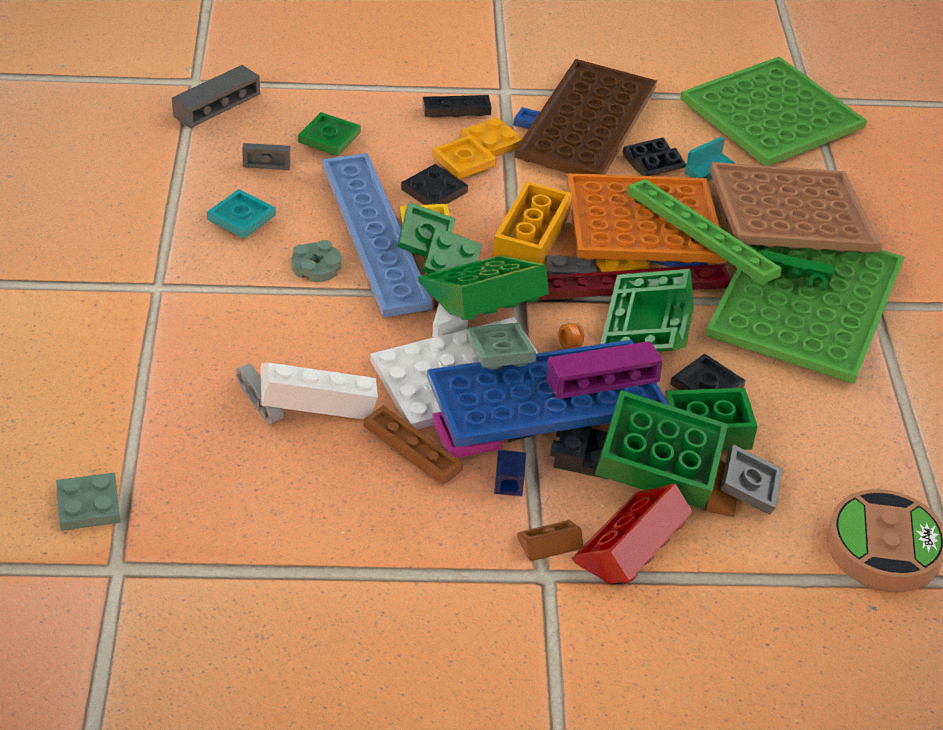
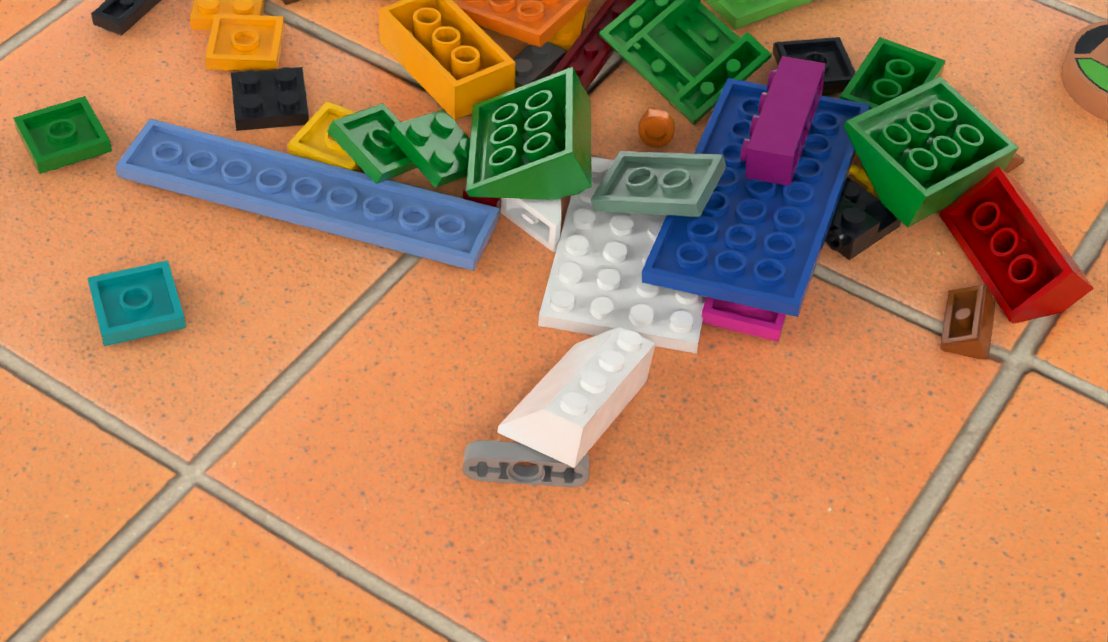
camera: 55 degrees left, 5 degrees up
(266, 156) = (44, 217): dark grey plate -> none
(305, 256) = (305, 260): sand green plate -> none
(413, 445) = (735, 359): dark orange plate -> none
(510, 473) = (850, 296): clear blue brick -> none
(751, 479) = (1004, 113): dark grey plate -> none

